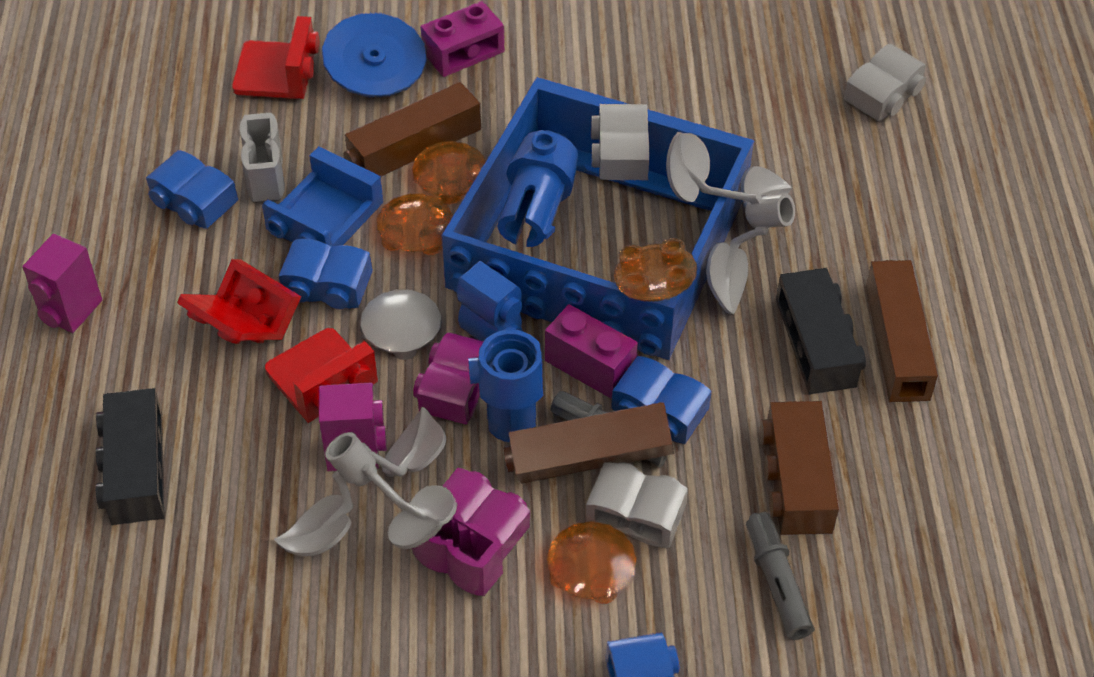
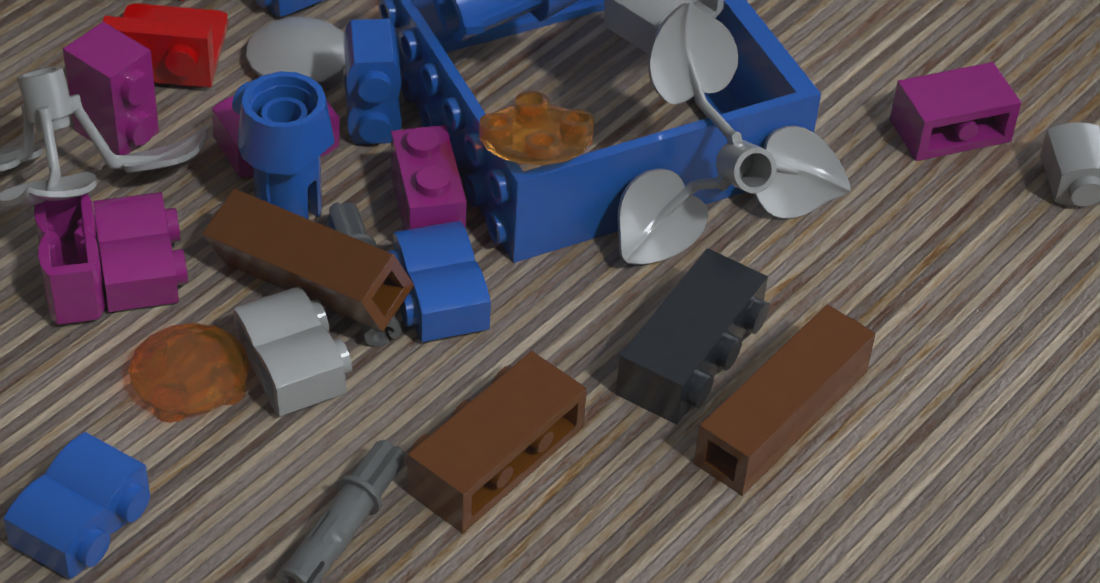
camera: 40 degrees right, 5 degrees down
(784, 102) = (954, 111): none -> magenta brick

